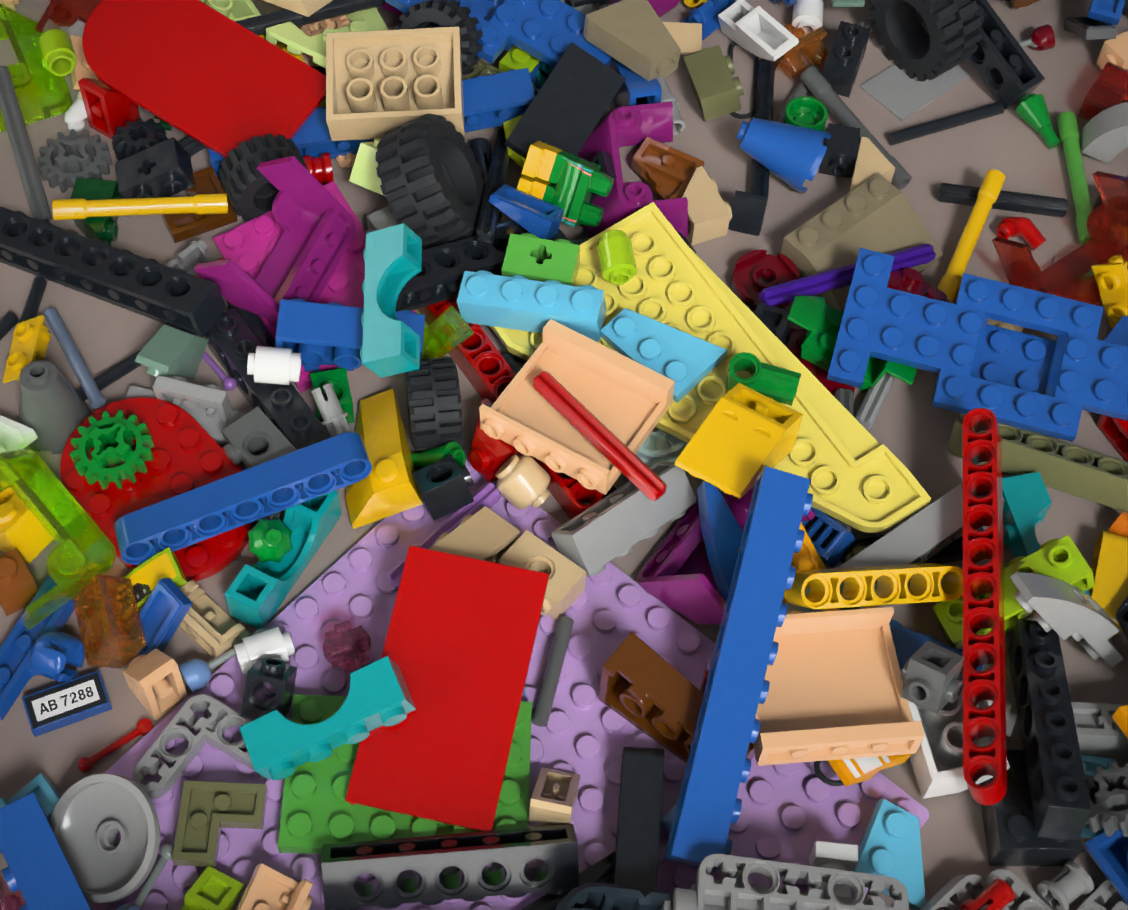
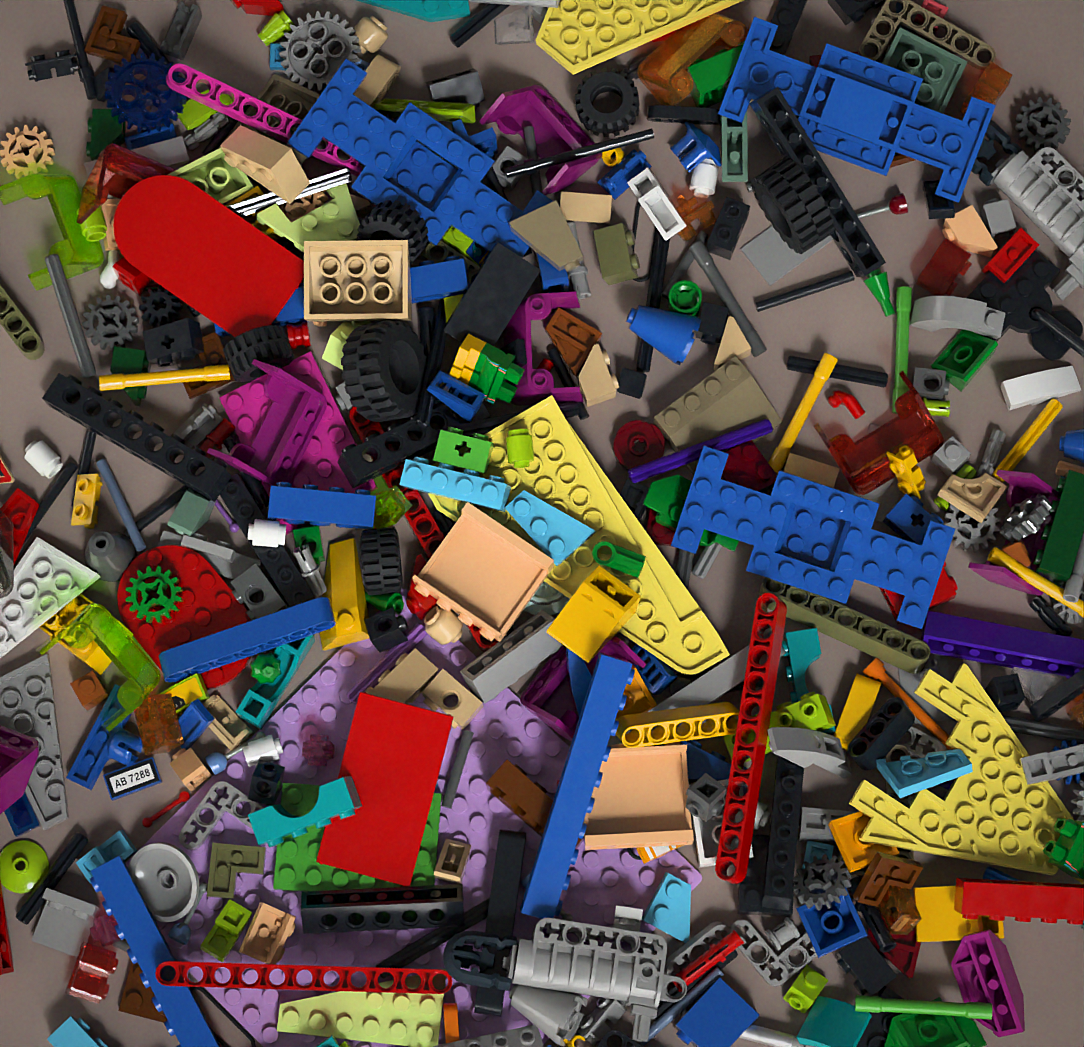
camera: 10 degrees right, 20 degrees up
(390, 262) = (349, 463): teal arch -> none
(600, 436) = (496, 599): red axle -> none

